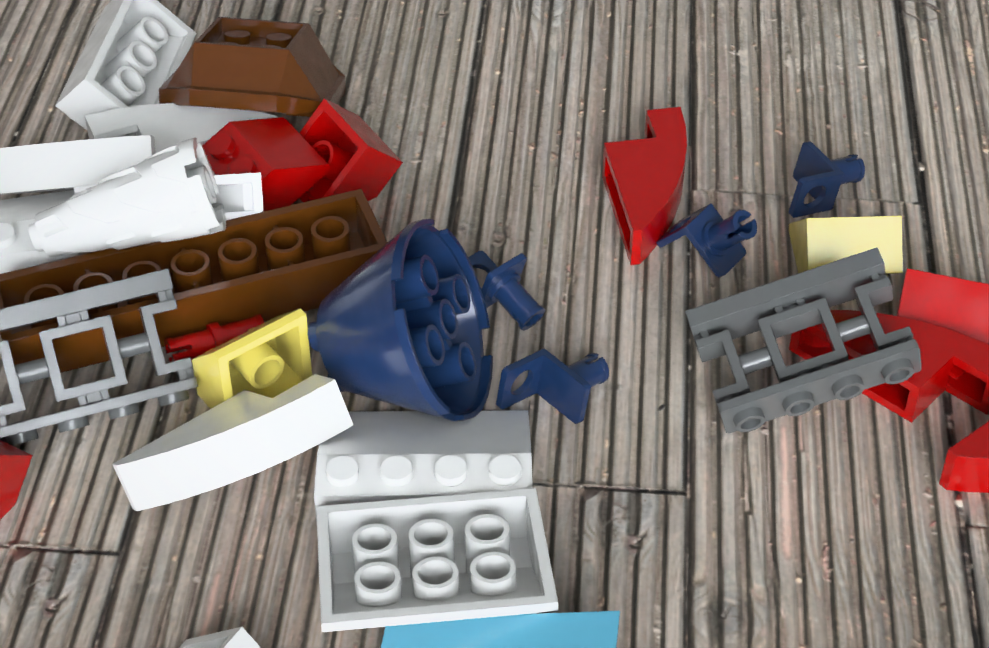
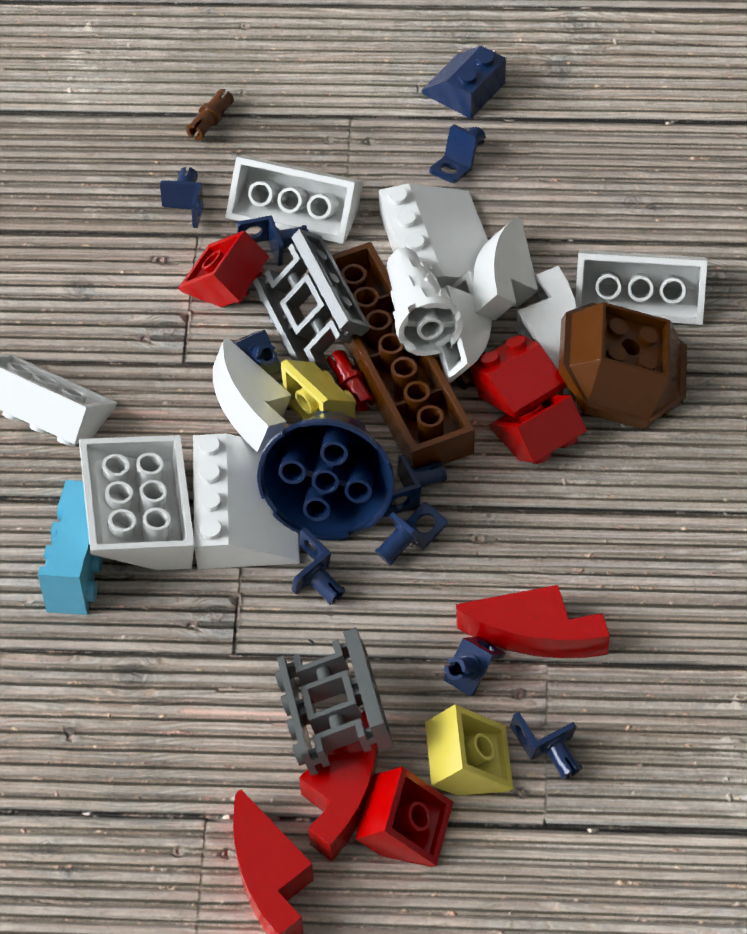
camera: 90 degrees right, 10 degrees up
(129, 435) = (260, 350): none -> dark blue bracket

